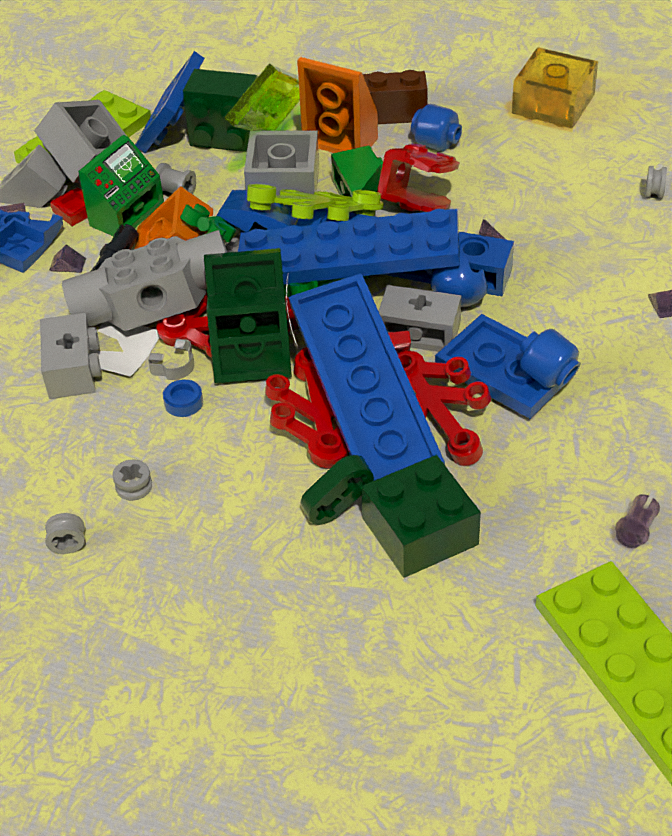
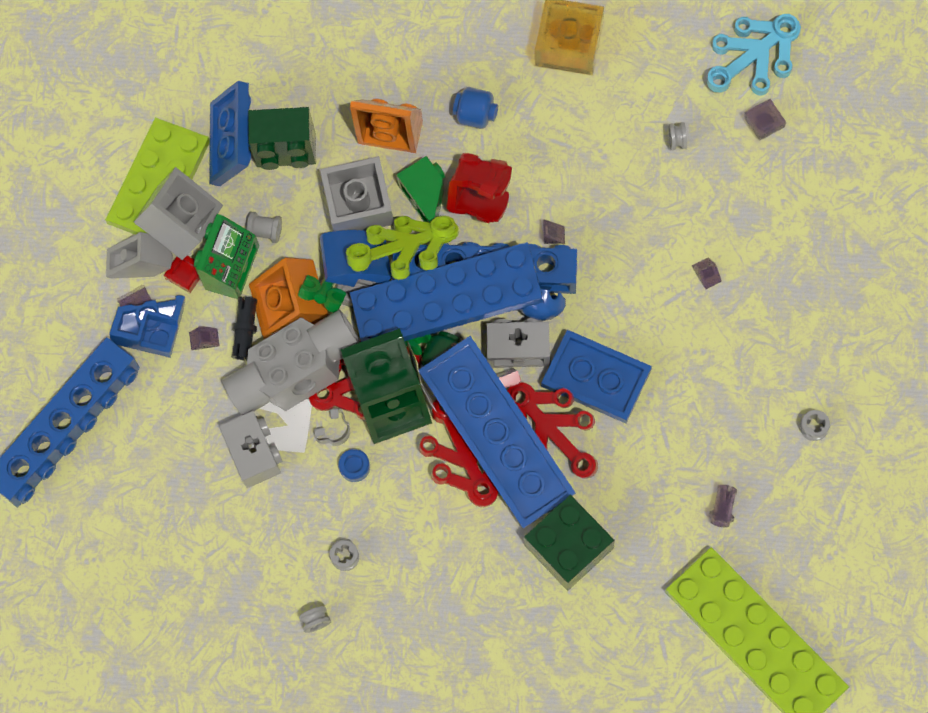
camera: 10 degrees left, 25 degrees up
(266, 101) = (330, 142): clear neon green plate -> none
(336, 489) = (503, 536): dark green beam -> none
(397, 94) = (425, 70): reddish brown slope -> none
(549, 358) = (633, 377): blue head -> none

